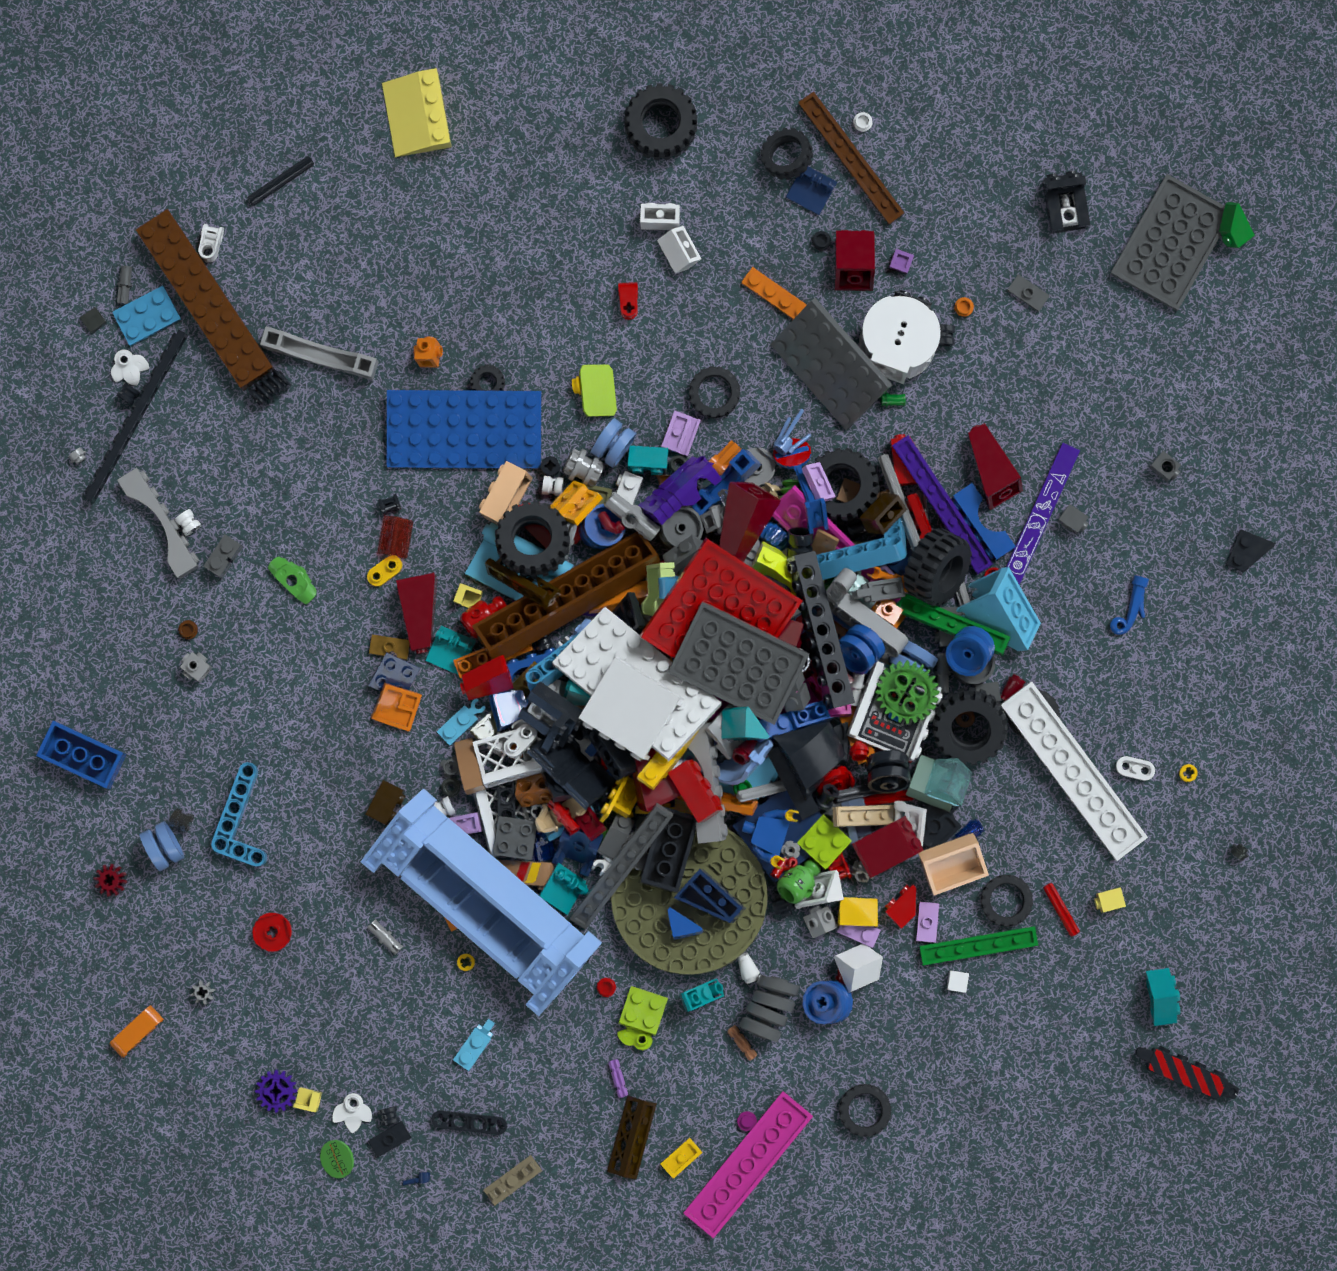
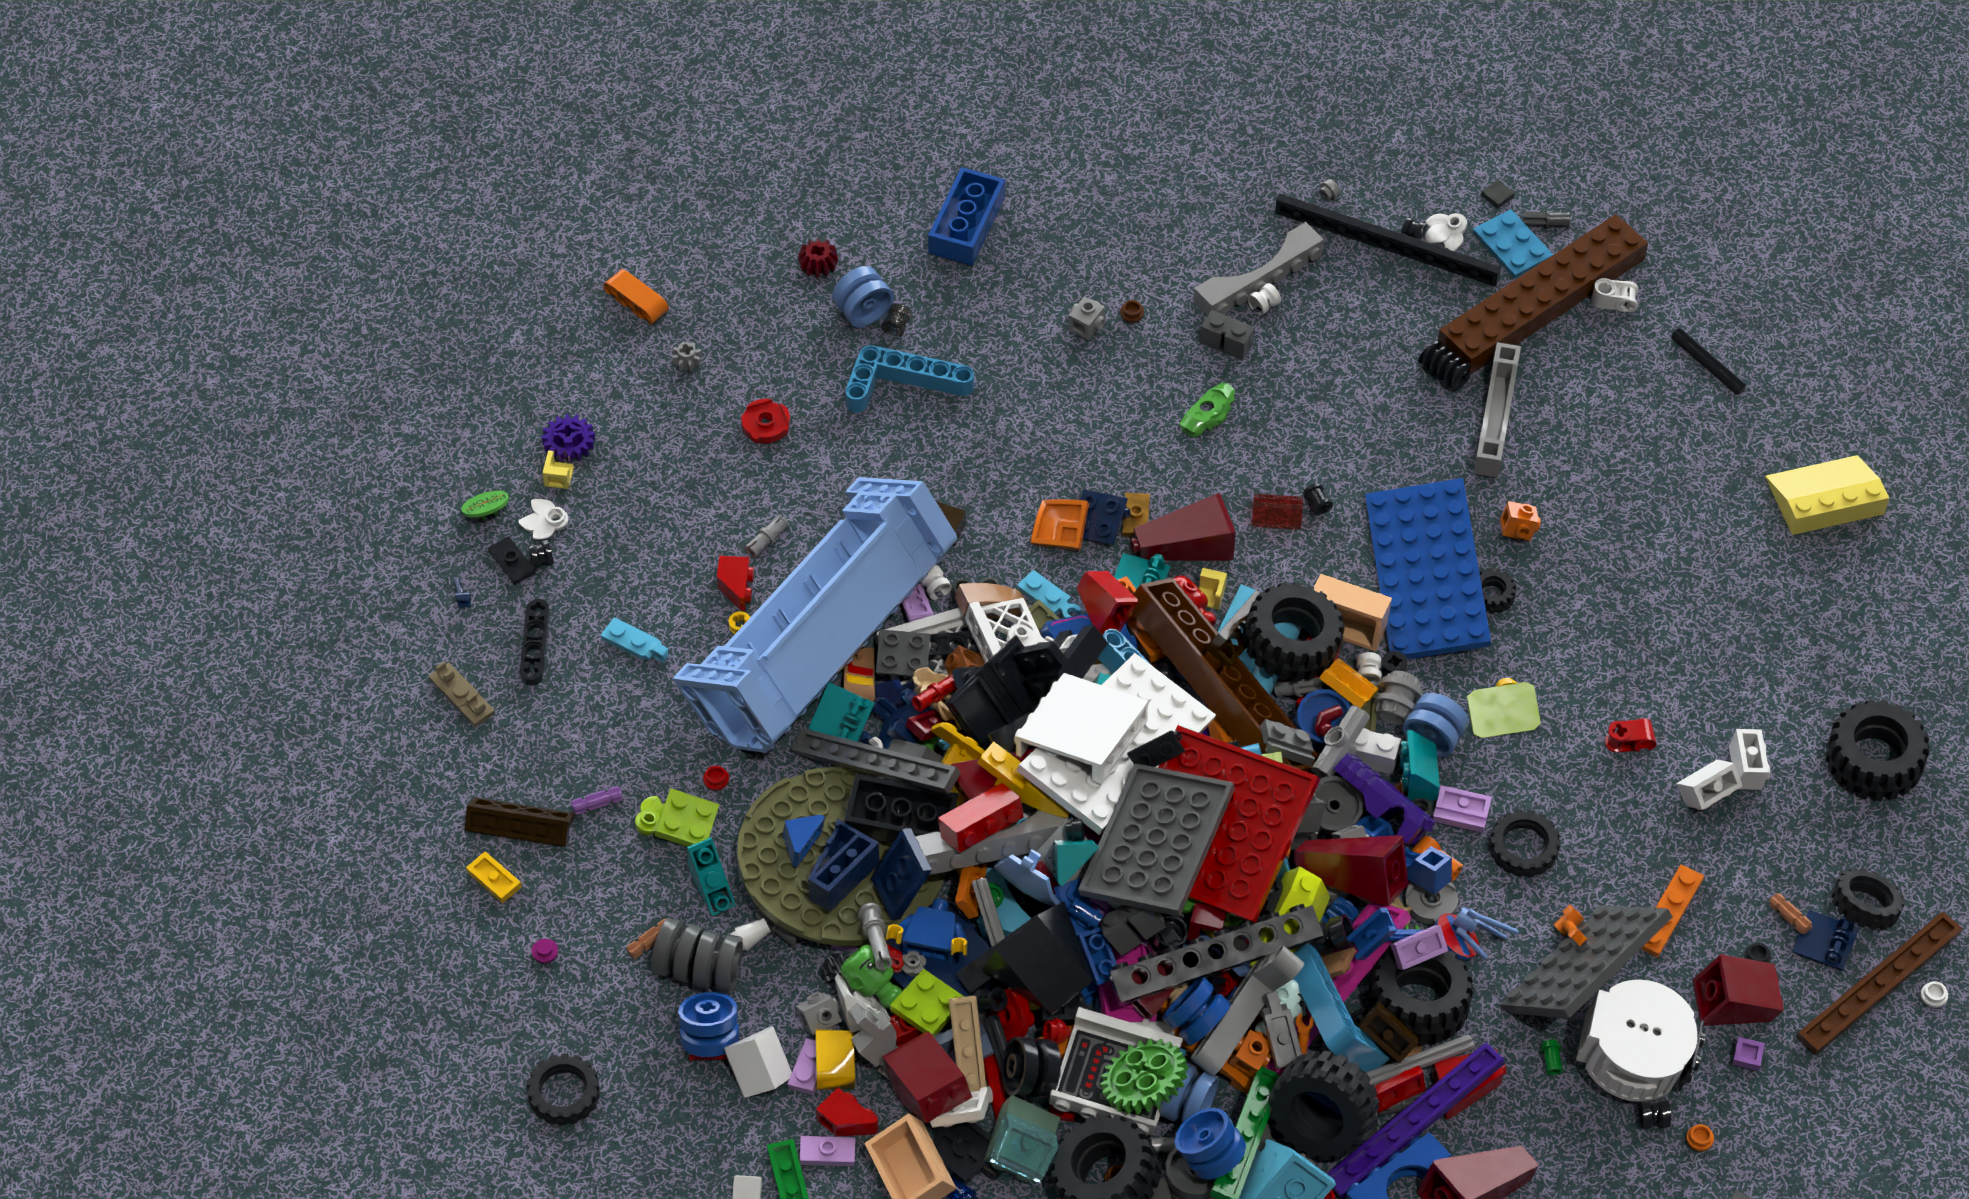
camera: 80 degrees right, 30 degrees down
(385, 572) = (1233, 501): yellow plate -> none
(427, 965) = (733, 579): none -> red slope
(631, 556) = (1291, 742): none -> dark grey plate
(660, 662) = (1158, 750): none -> black hinge
(719, 722) = (1075, 830): none -> black plate
(727, 853) = (901, 874): none -> dark blue plate
(748, 1164) = (487, 955): dark pink plate -> none
(766, 877) = (874, 928): none -> light grey pin
(783, 721) = (1085, 913): none -> blue pin
(786, 372) = (1568, 922): none -> orange brick
(789, 210) = (1790, 913): none -> nougat axle
(851, 883) = (876, 1035): none -> light grey brick

